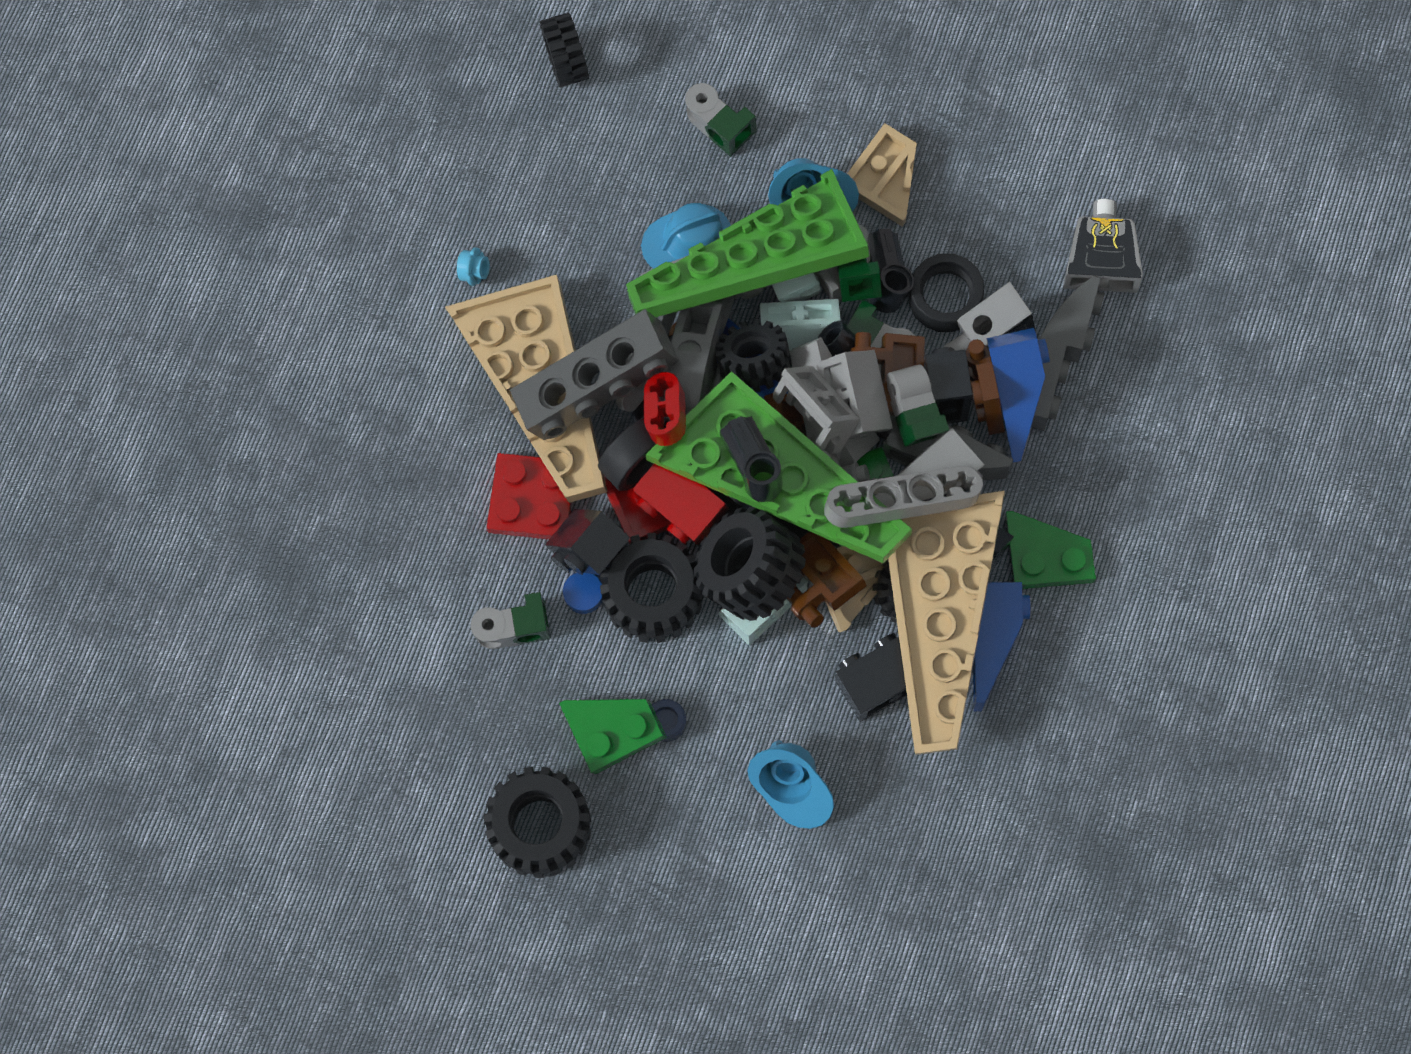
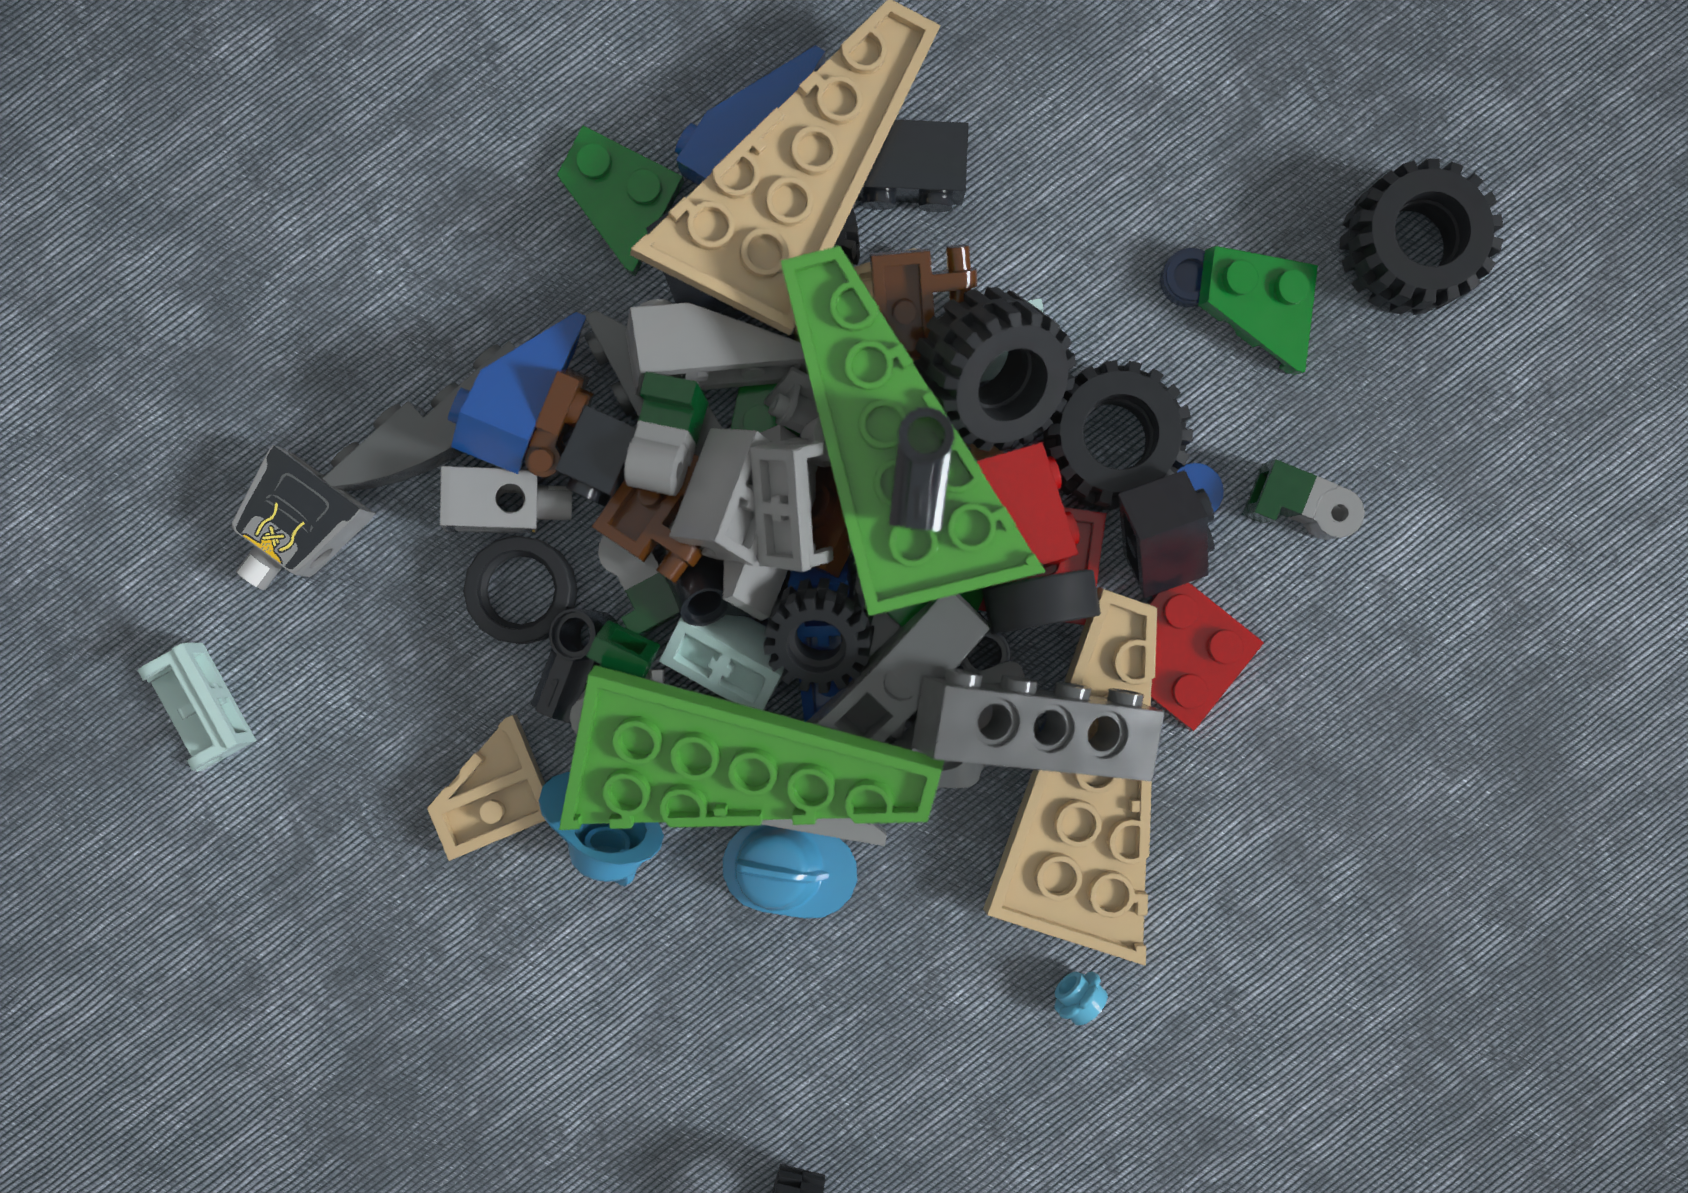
camera: 155 degrees left, 15 degrees up
(656, 410) = (996, 623): red beam -> none
(718, 120) = (653, 1004): leg -> none
(791, 785) = (1095, 104): dark azure piece -> none
(901, 490) = (762, 311): light grey beam -> none
(1085, 122) = (198, 704): none -> light aqua hinge

